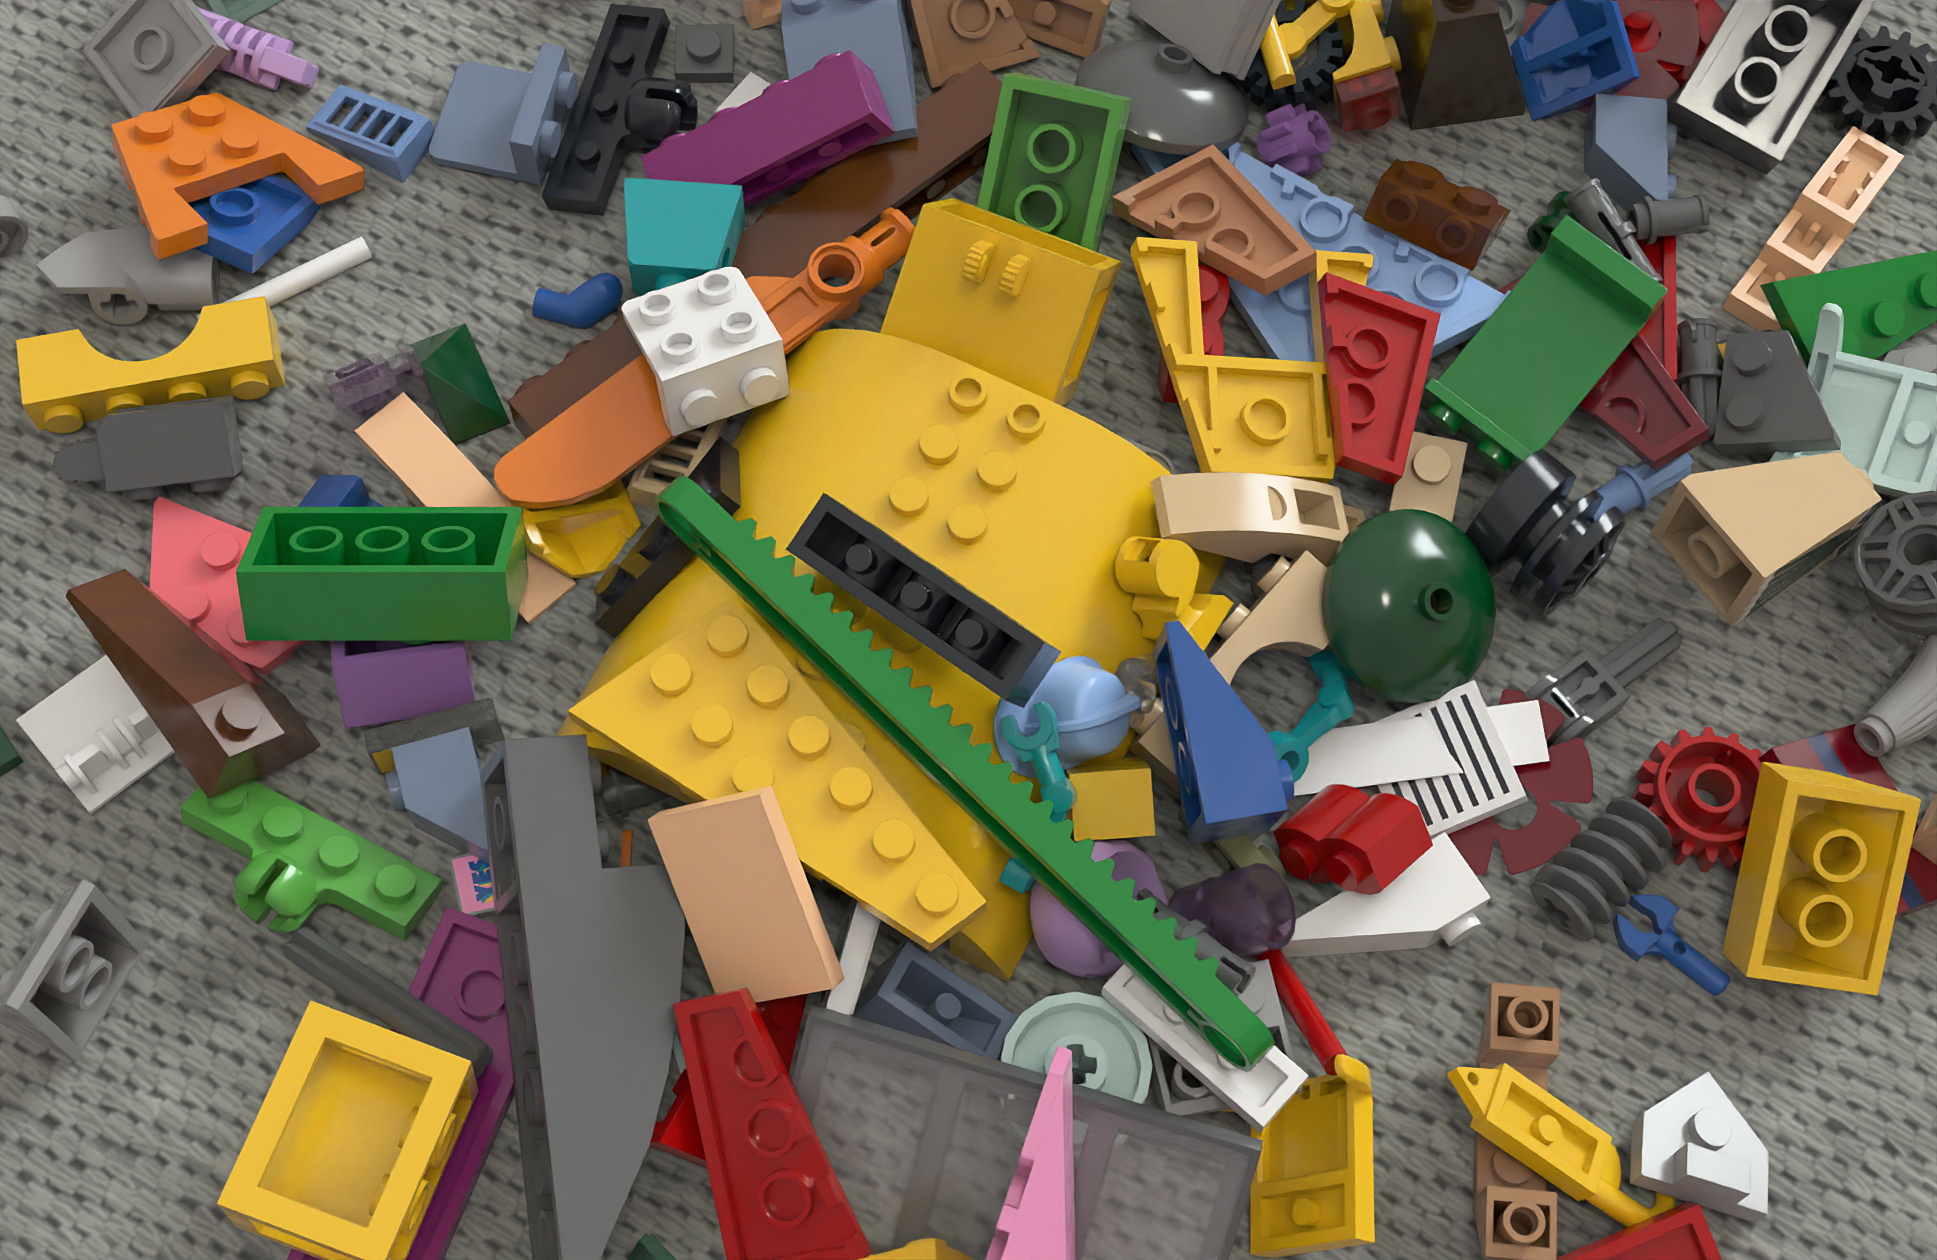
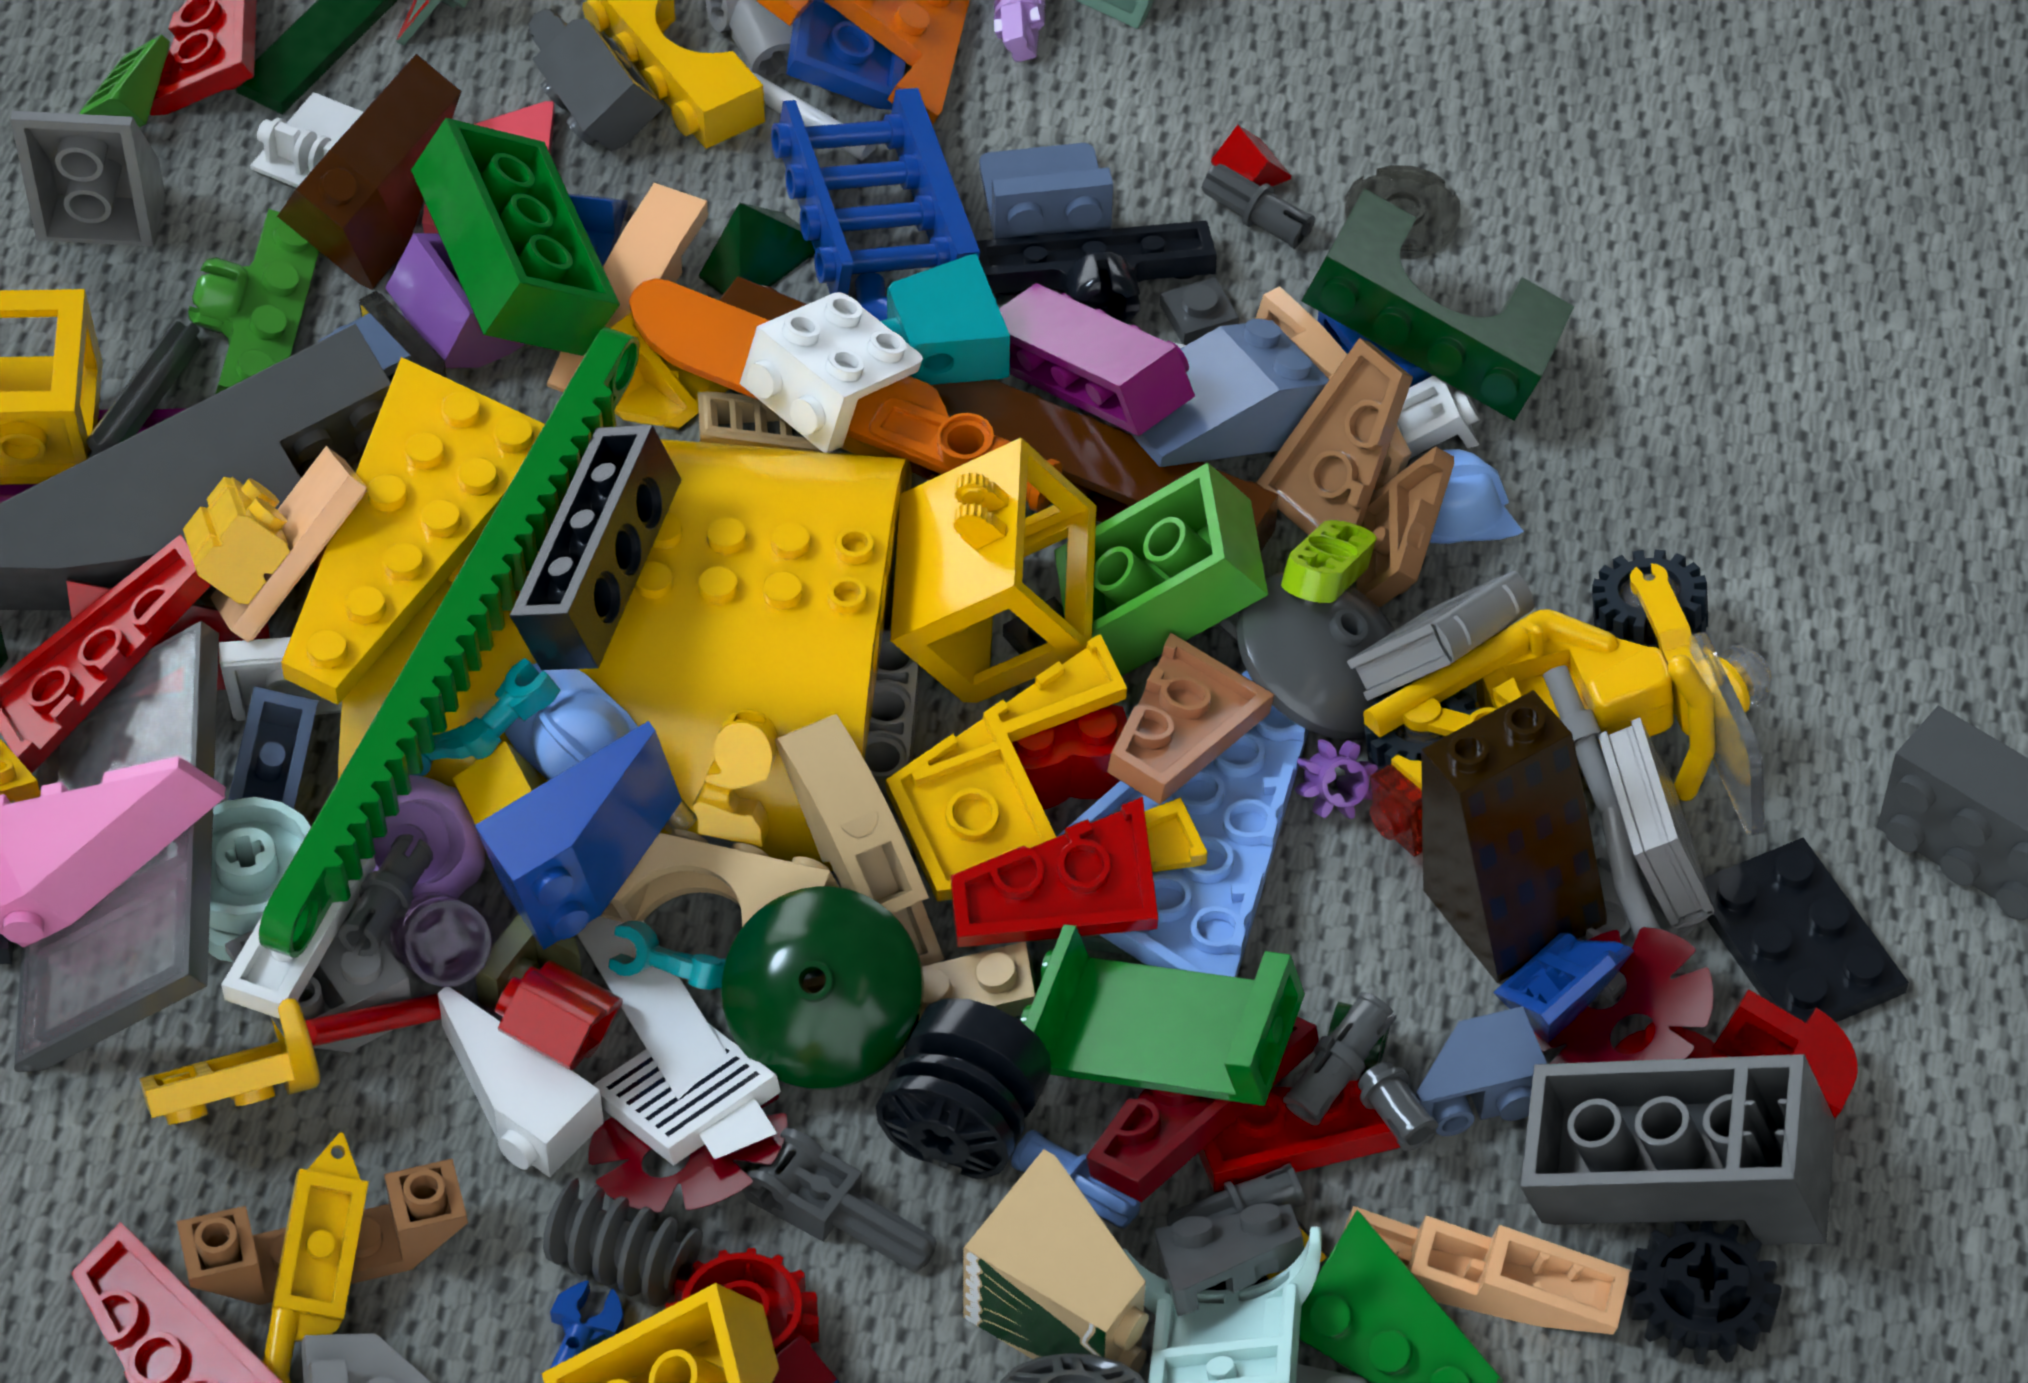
camera: 70 degrees right, 15 degrees down
(366, 380) = (712, 179): clear purple plate -> none
(394, 161) = (983, 123): medium blue slope -> none
(456, 206) = (919, 168): none -> blue fence
(659, 552) = (676, 420): black wing -> none
(731, 943) = (237, 538): none -> yellow brick
(1089, 47) = (1328, 561): none -> lime beam
(1435, 213) = (1307, 910): reddish brown plate -> none

